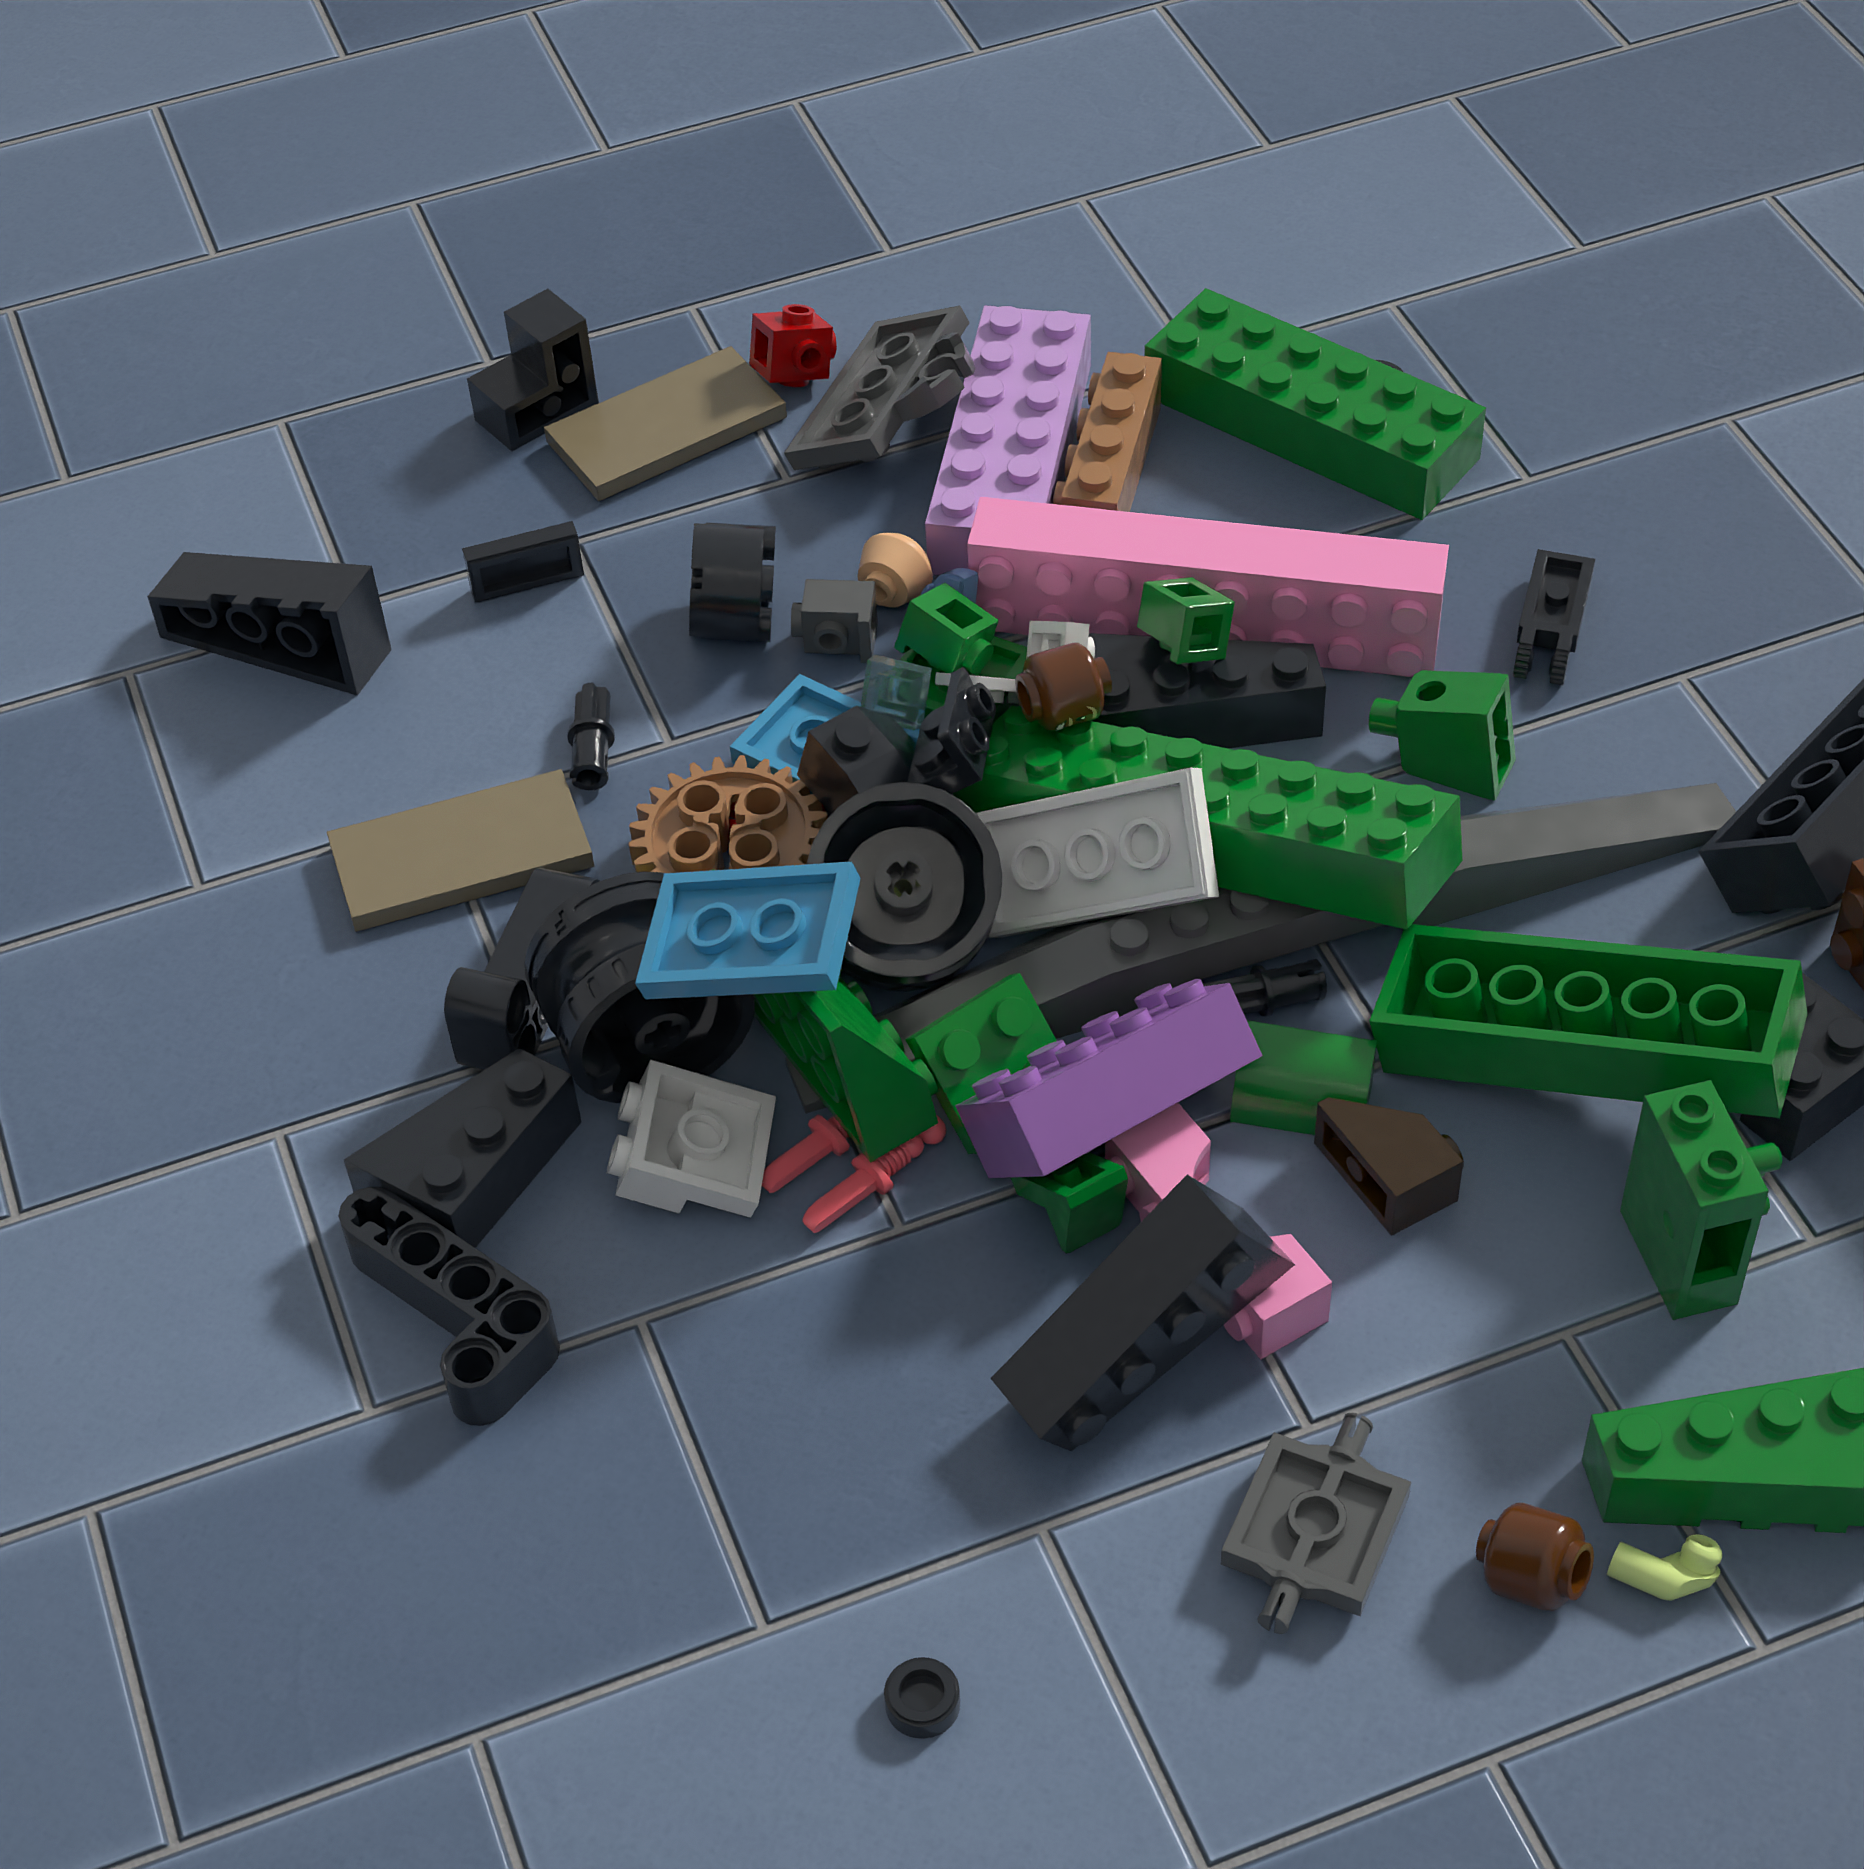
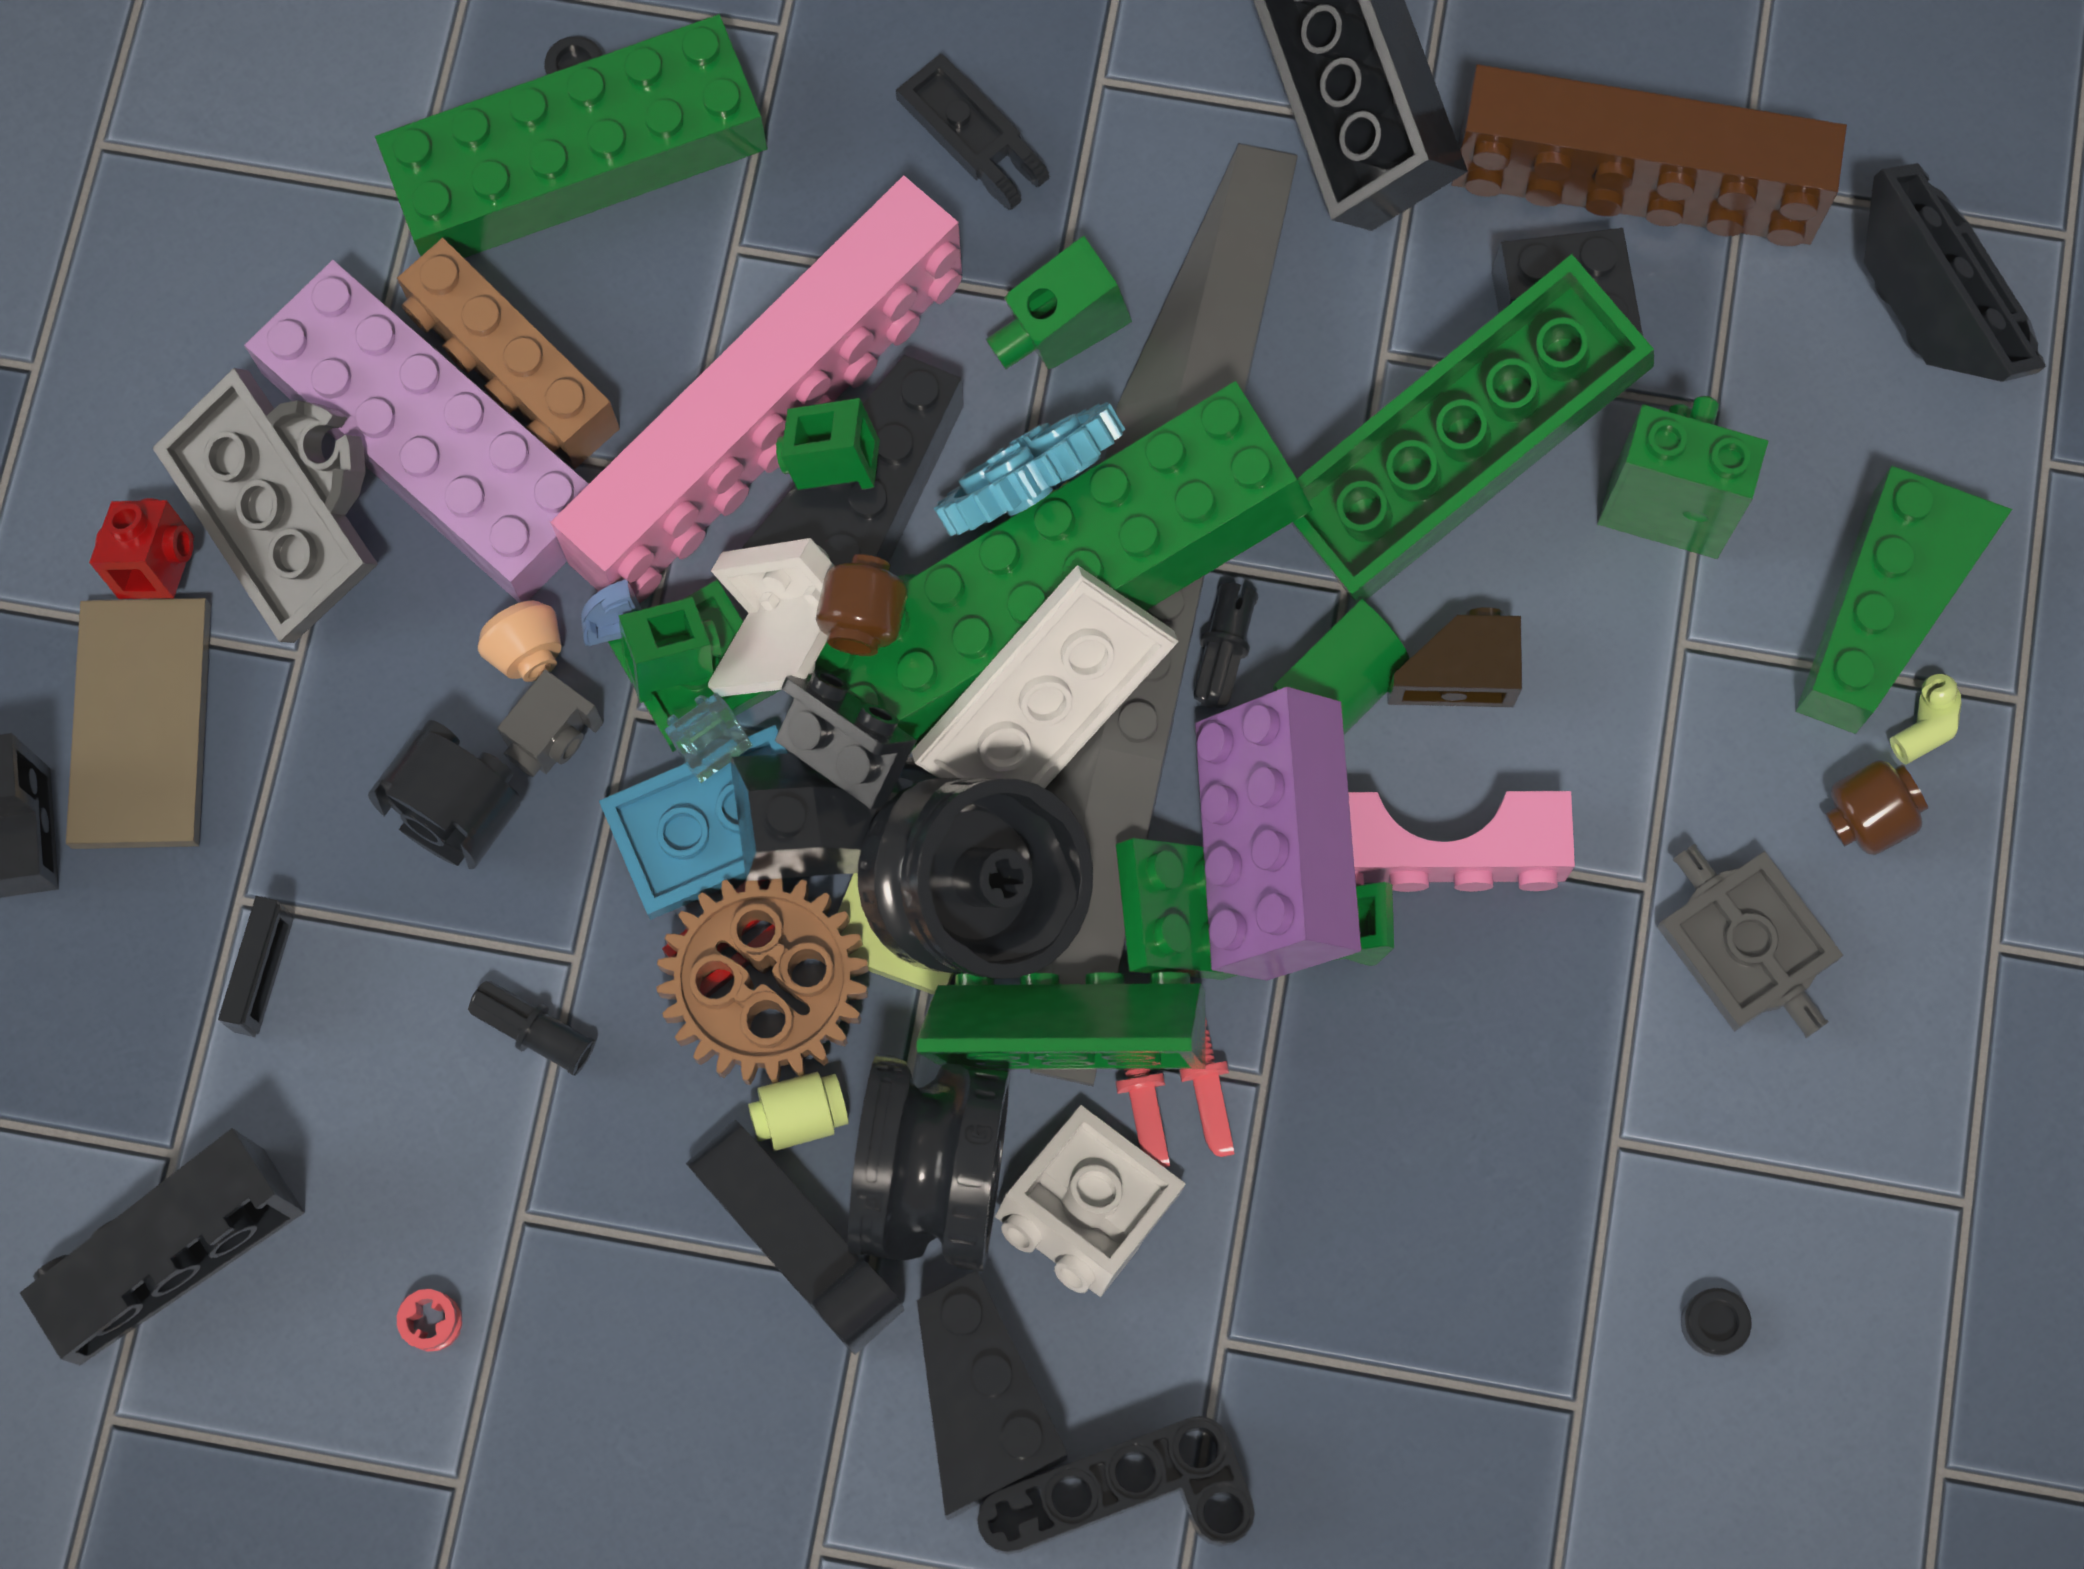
camera: 60 degrees left, 25 degrees up
(316, 798) = (412, 1310): none -> coral bush
(458, 849) = (589, 1221): dark tan tile -> none
(749, 931) = (1039, 1055): dark azure plate -> none
(1140, 1313) = (1528, 957): black wedge -> none
(1264, 727) = (1029, 468): none -> medium azure gear

